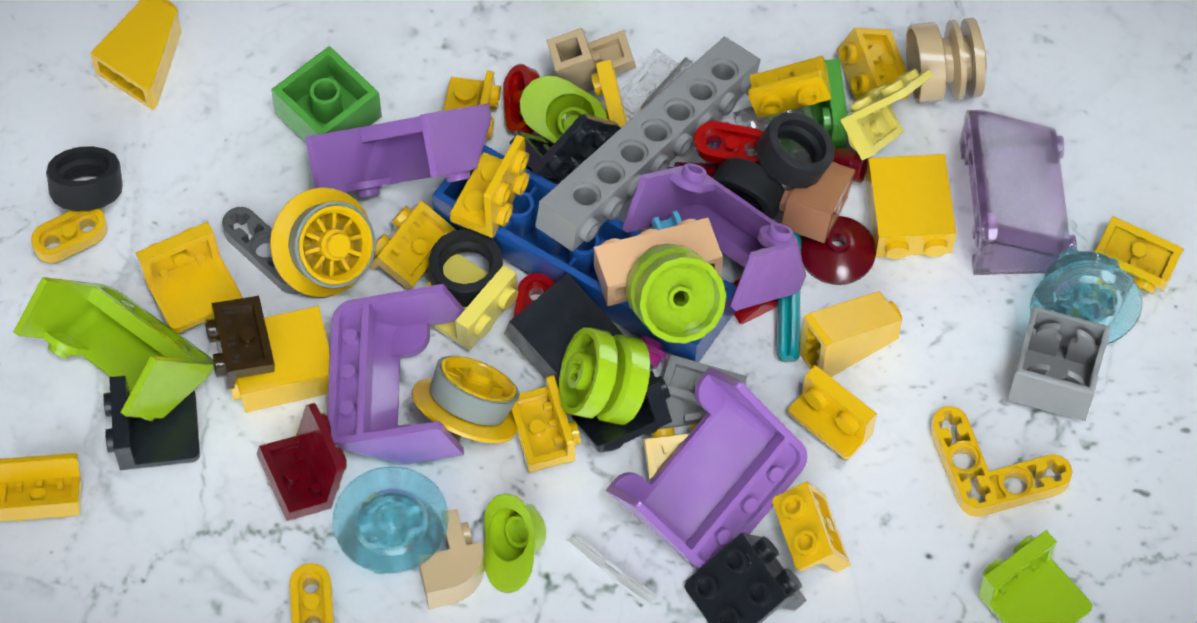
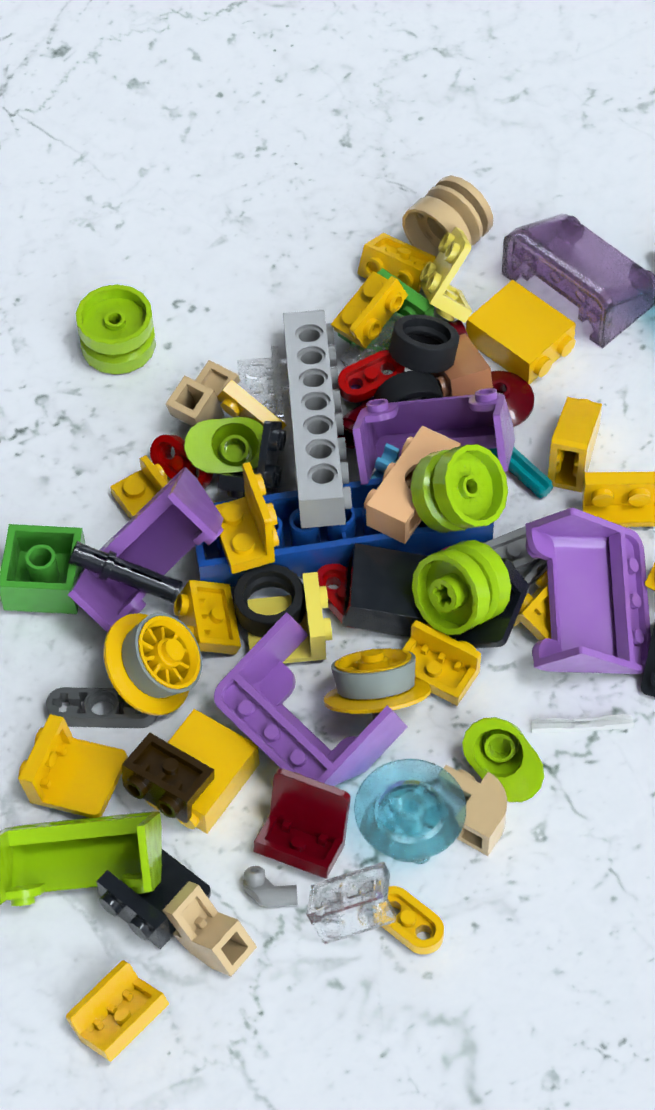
camera: 40 degrees left, 5 degrees down
(158, 483) = (206, 933): none -> tan brick
(236, 492) = (265, 892): none -> light grey arm
(279, 552) = (351, 903): none -> clear bracket
(368, 141) = (120, 570): none -> black pin

